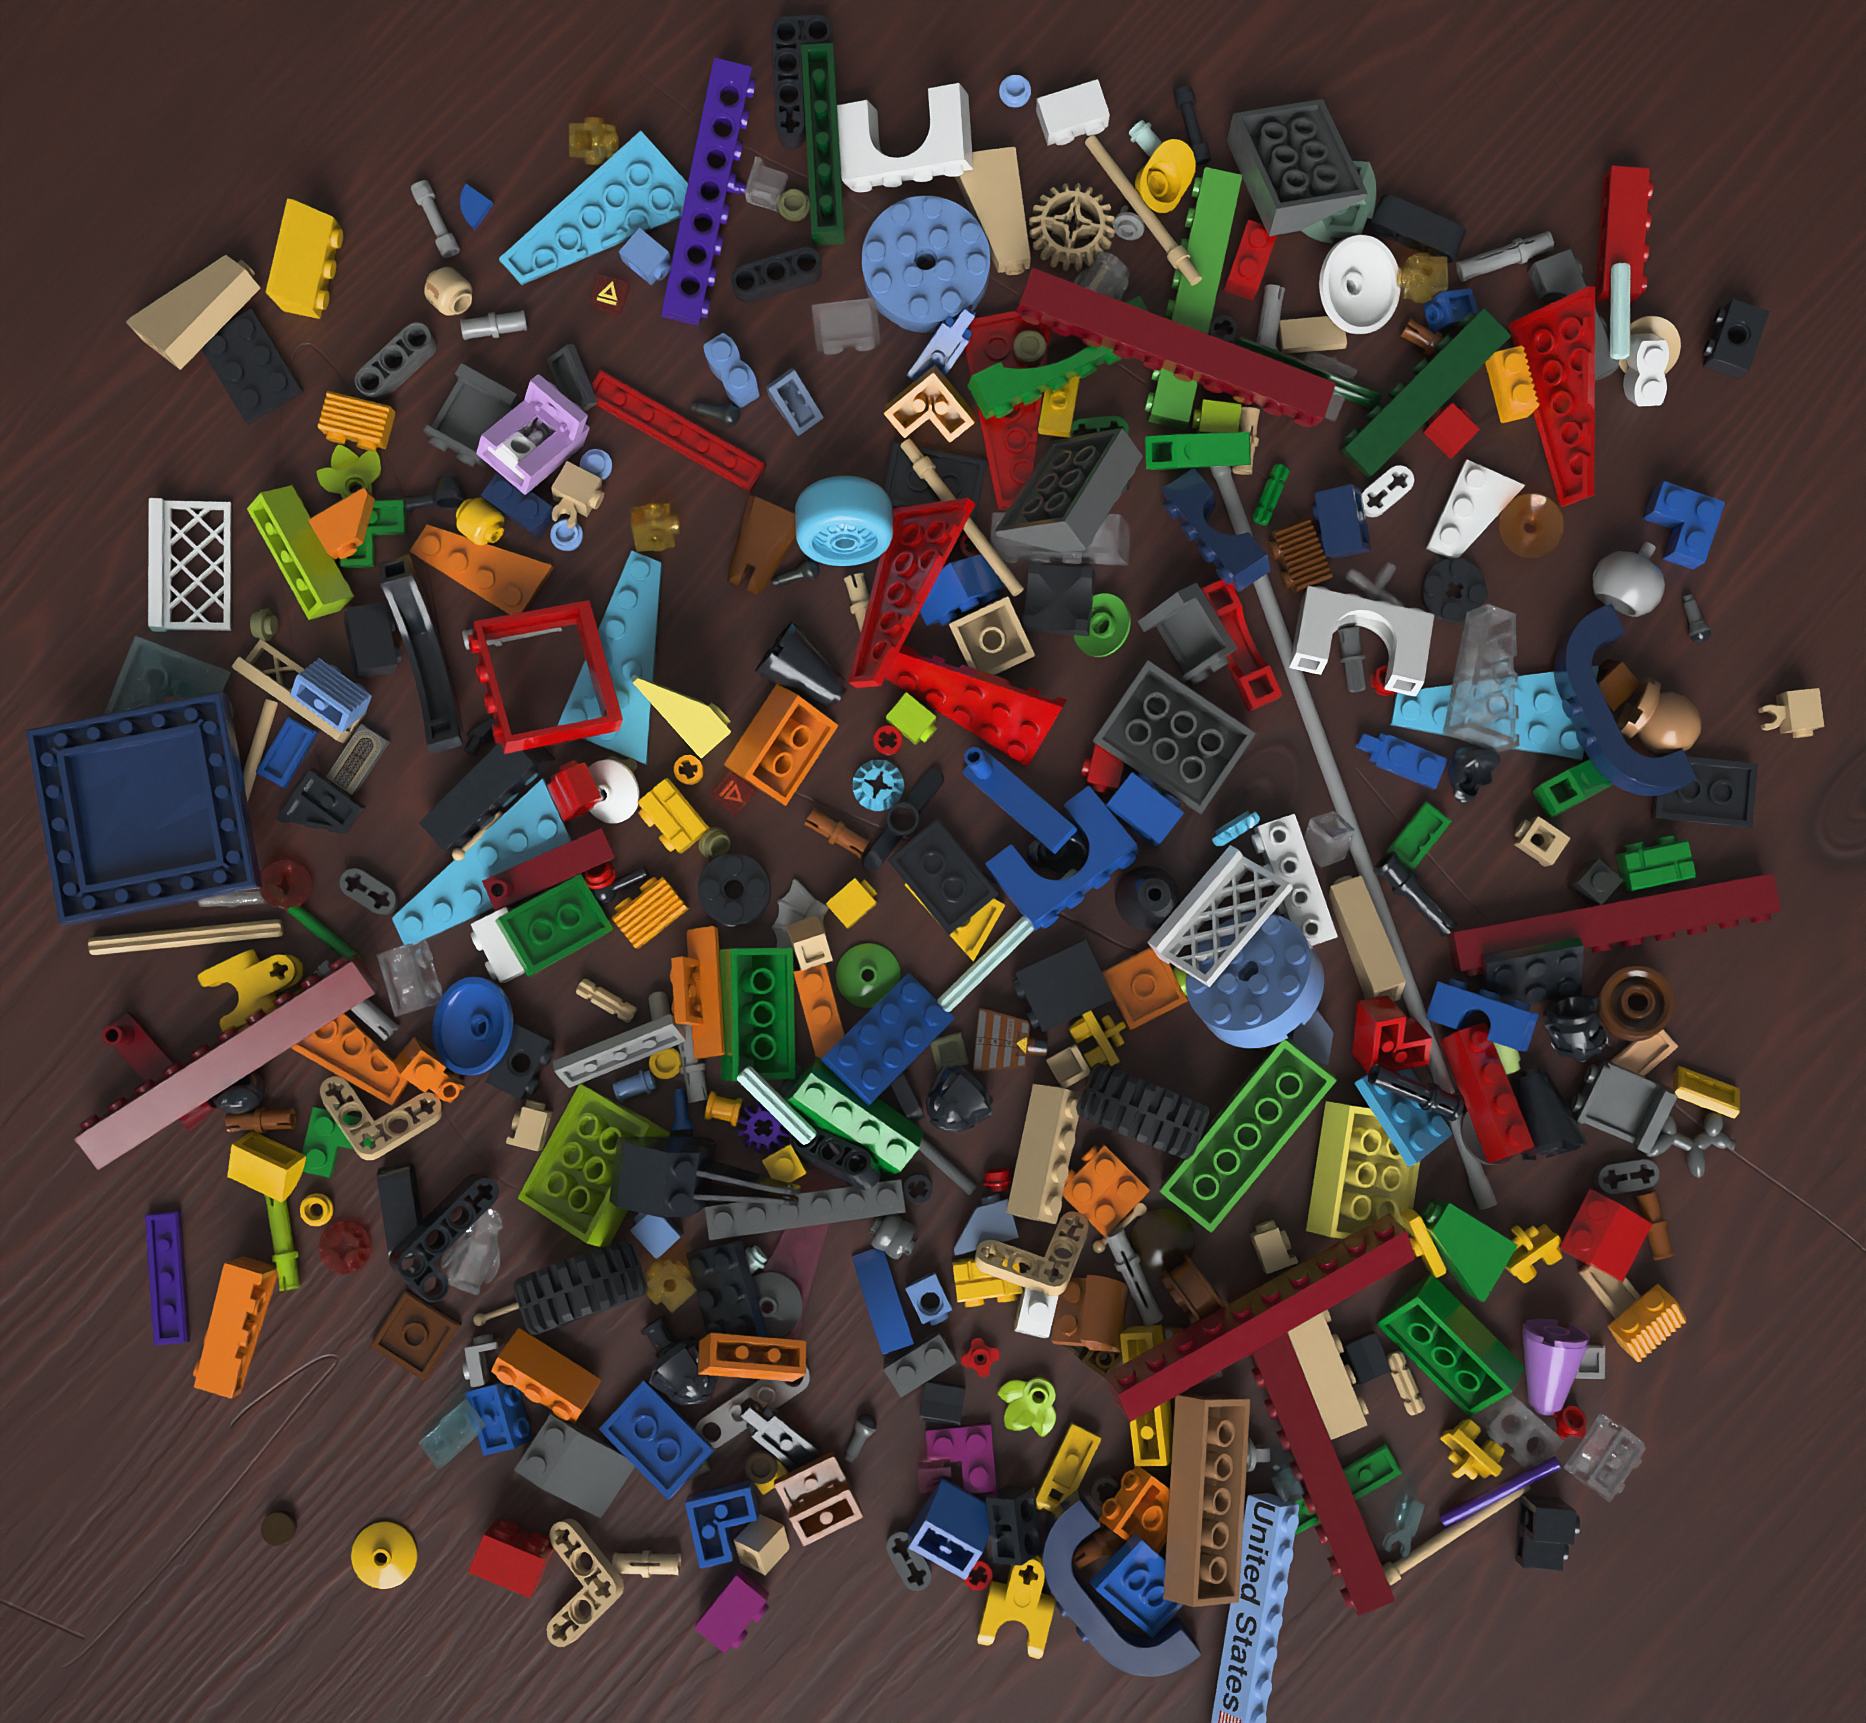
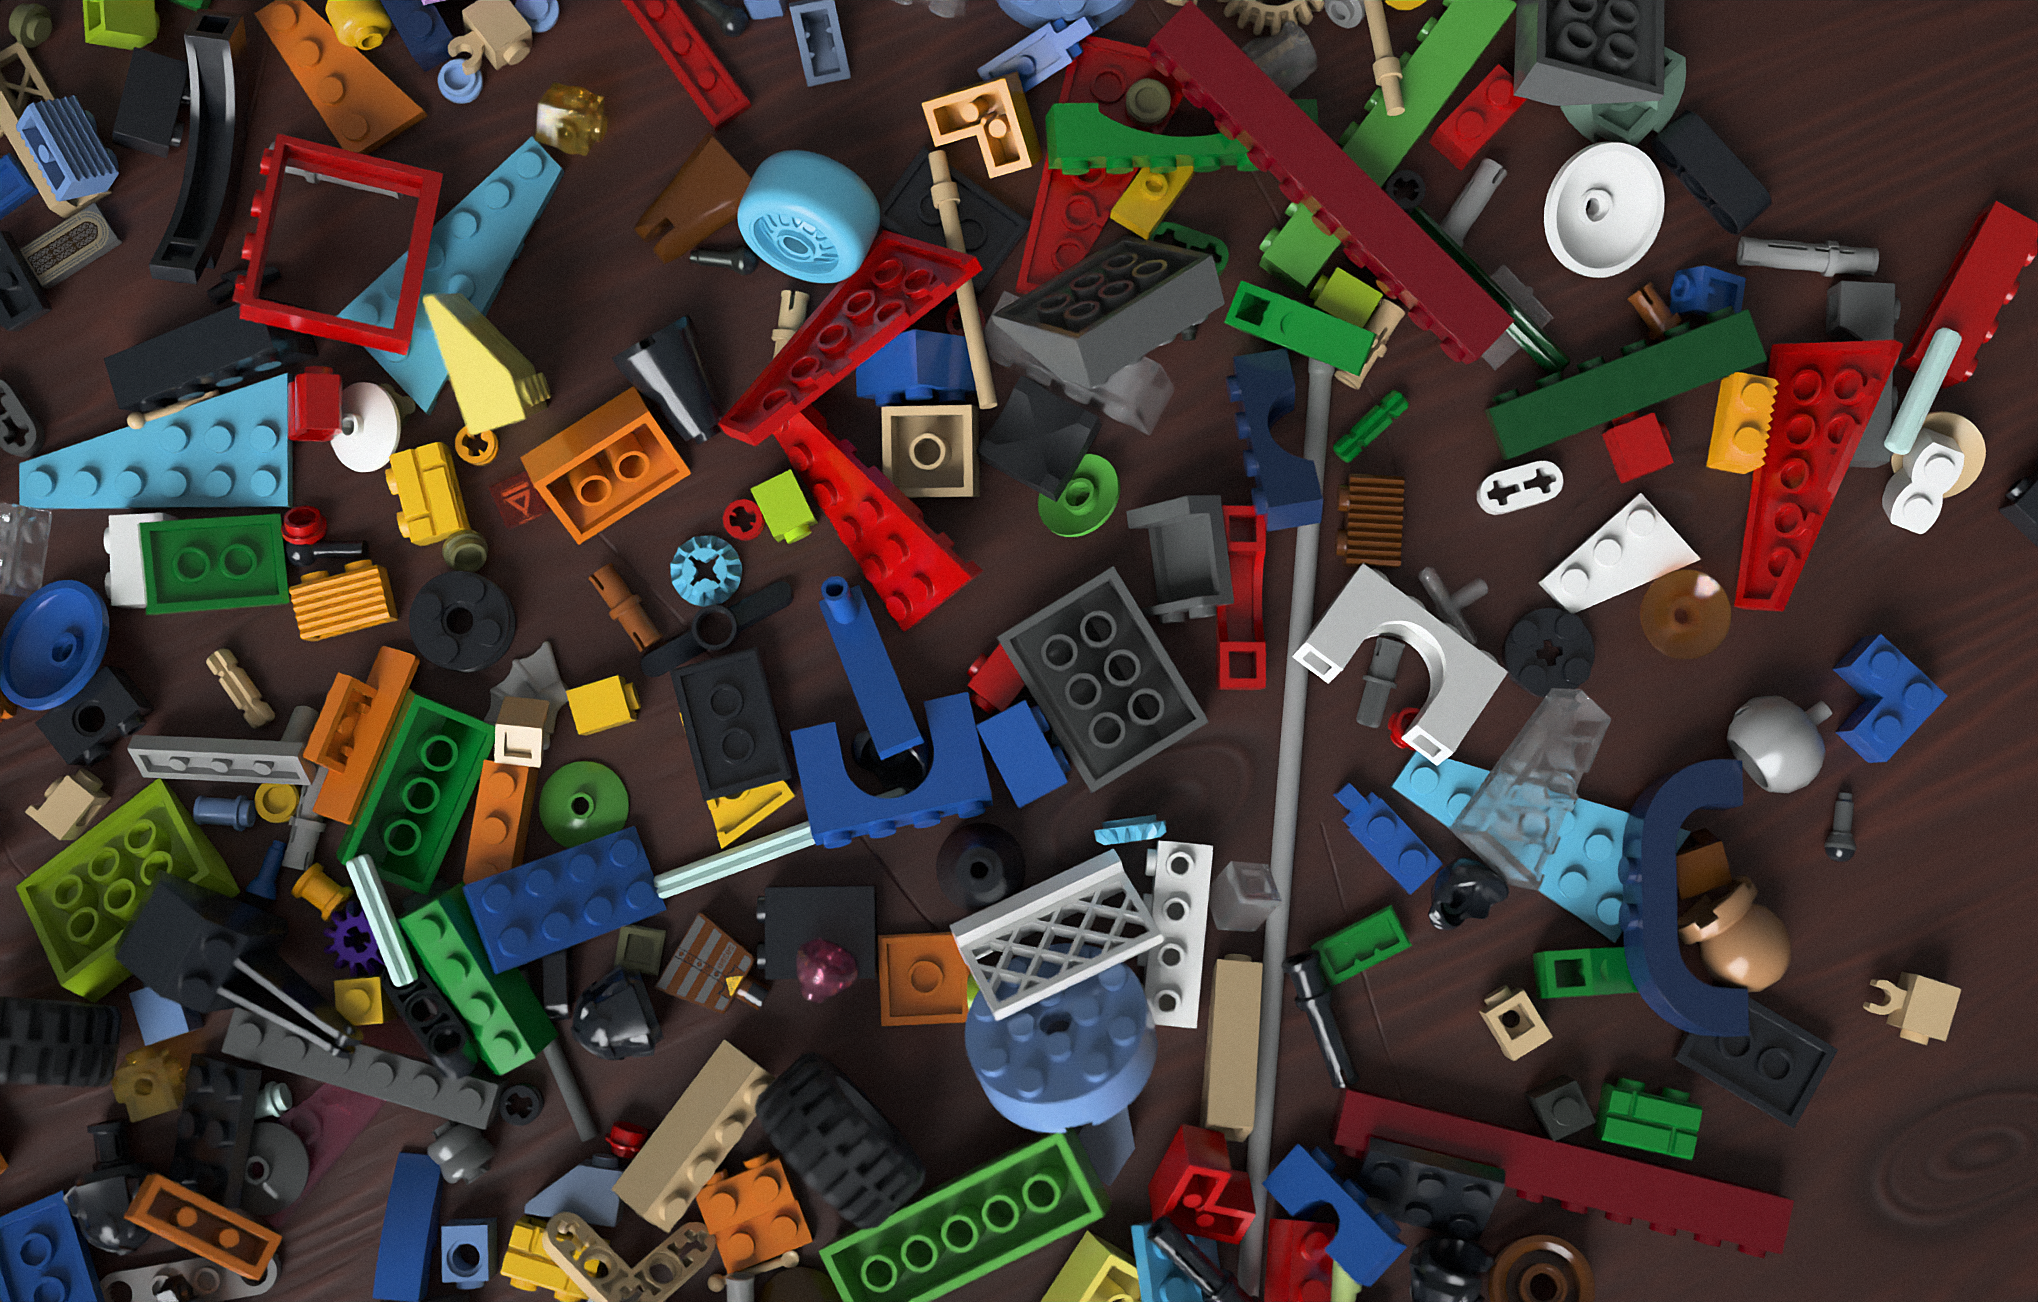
camera: 25 degrees right, 0 degrees up
(548, 869) = (237, 490): dark red piece -> none
(1068, 1066) = (781, 1036): tan panel -> none
(1080, 1007) = (824, 969): none -> clear pink brick
(1087, 1027) = (833, 1040): yellow hips -> none
(1310, 335) = (1513, 247): tan tile -> none
(1341, 521) = (1444, 501): dark blue brick -> none
(1423, 277) = (1689, 236): clear yellow brick -> none

